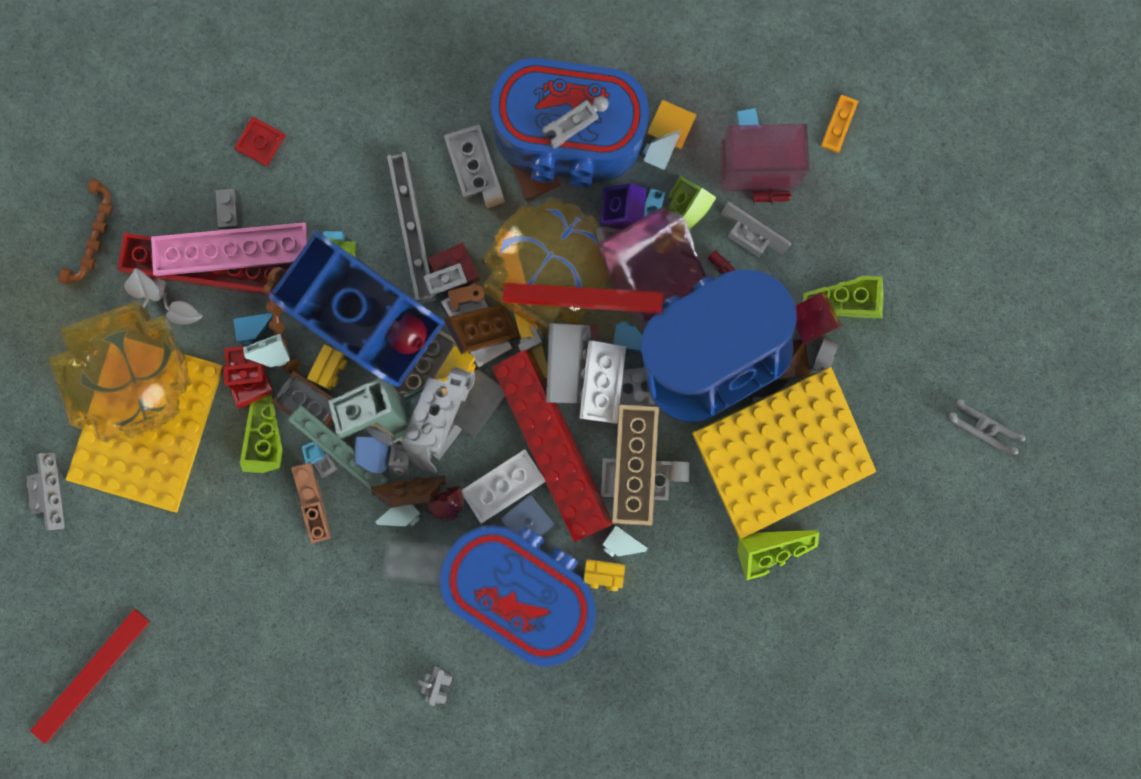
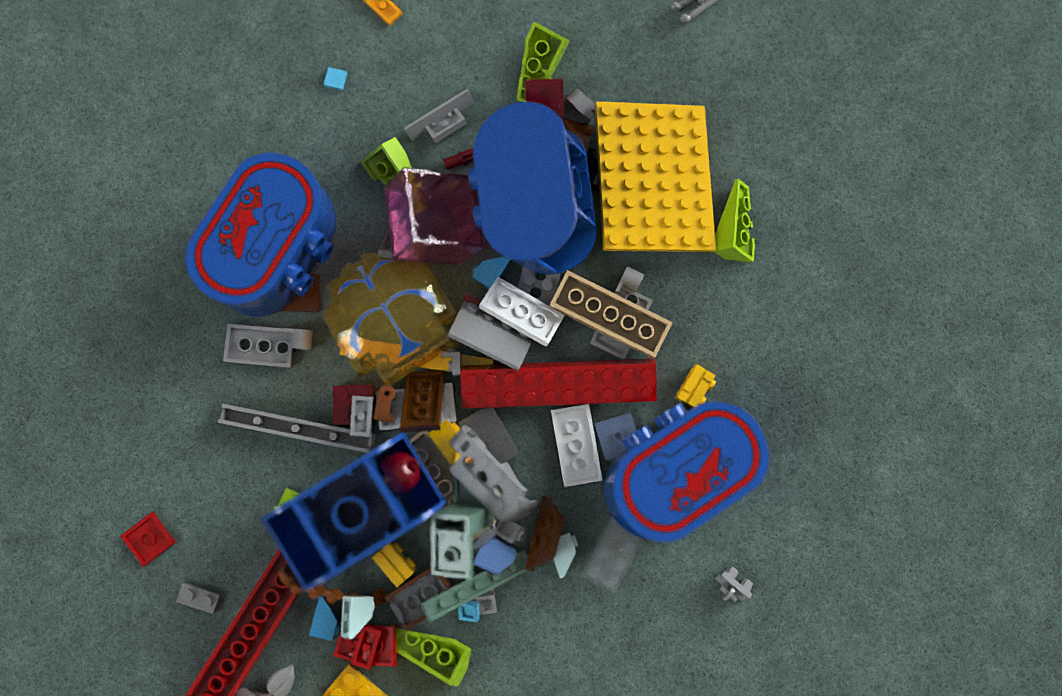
camera: 70 degrees left, 0 degrees up
(228, 249) = (239, 612): bright pink plate -> none
(312, 502) = (515, 631): nougat slope -> none
(337, 235) = (274, 501): medium azure tile -> none
(447, 504) = (571, 503): dark red cylinder -> none
(575, 121) = (268, 227): light grey plate -> none
(583, 297) = (437, 293): red tile -> none
(622, 205) = (365, 223): dark purple brick -> none
(622, 544) = (674, 359): light aqua slope -> none
(654, 201) = (375, 196): medium azure leg -> none
(661, 149) = (328, 167): light aqua slope -> none
(669, 119) = (309, 147): yellow tile -> none
(764, 157) = (379, 75): clear pink tile -> none
(771, 196) = (416, 88): dark red axle -> none

